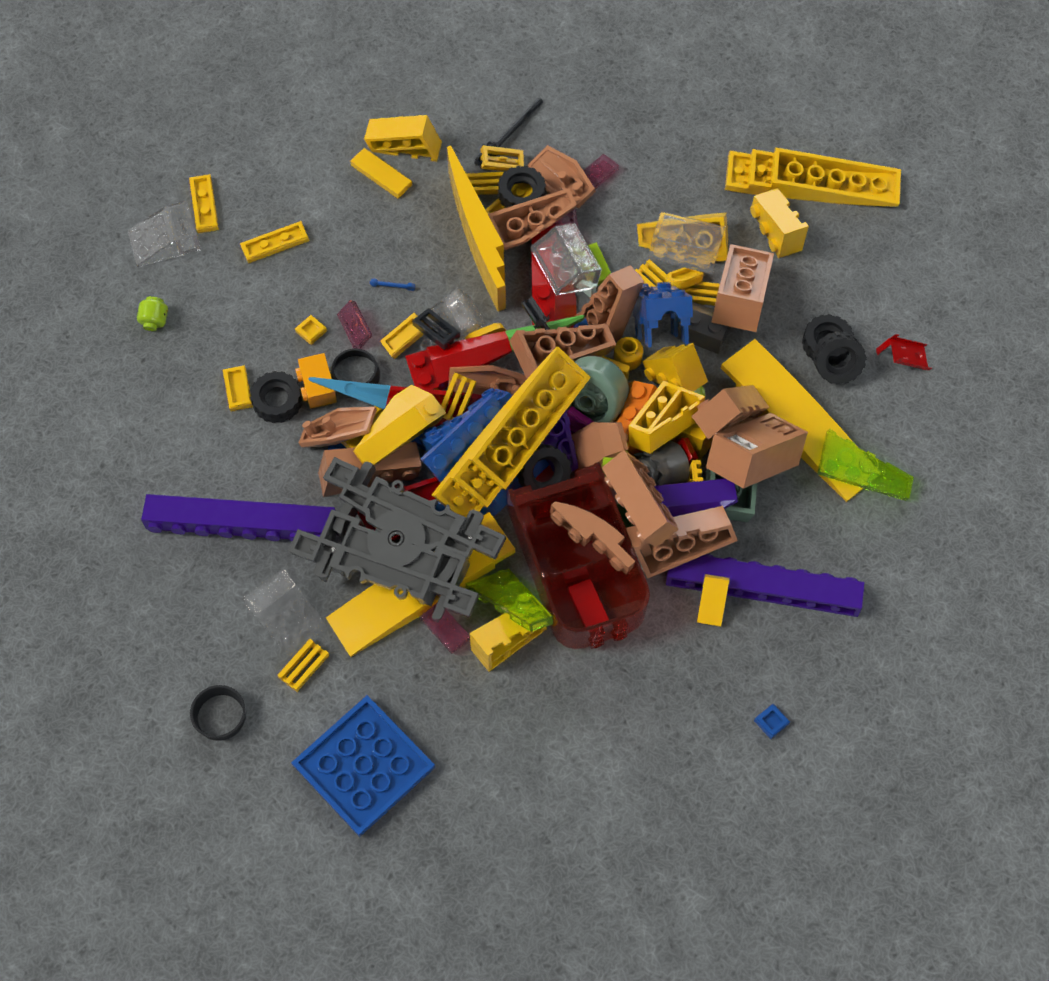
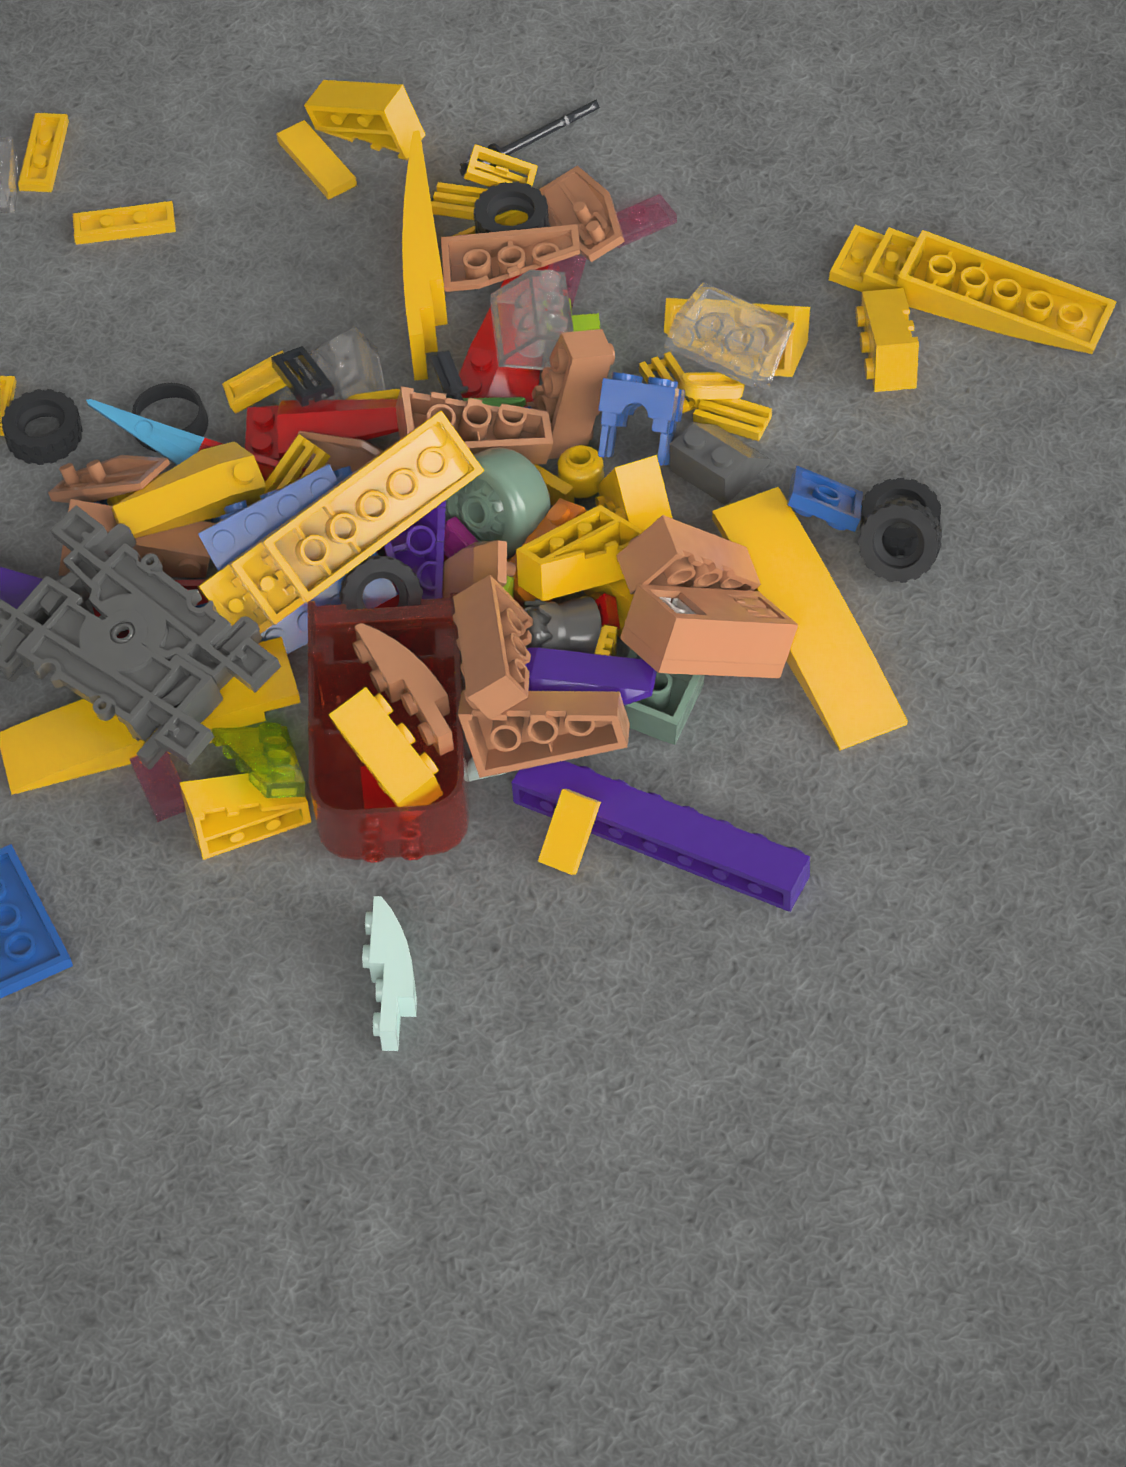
camera: 20 degrees right, 10 degrees down
(311, 329) = (129, 349): yellow tile -> none
(316, 367) = (97, 431): light orange brick -> none
(354, 324) = (193, 352): clear pink plate -> none
(409, 286) = (296, 320): blue hinge -> none
(596, 581) = (387, 750): none -> yellow wedge
(636, 714) = (391, 971): none -> light aqua slope
(742, 288) = (785, 411): nougat piece -> none
(771, 721) = (596, 1021): blue tile -> none
(783, 340) = (825, 499): none -> blue plate
(854, 466) = (865, 697): clear neon green wing -> none
(906, 352) = (1019, 559): red piece -> none

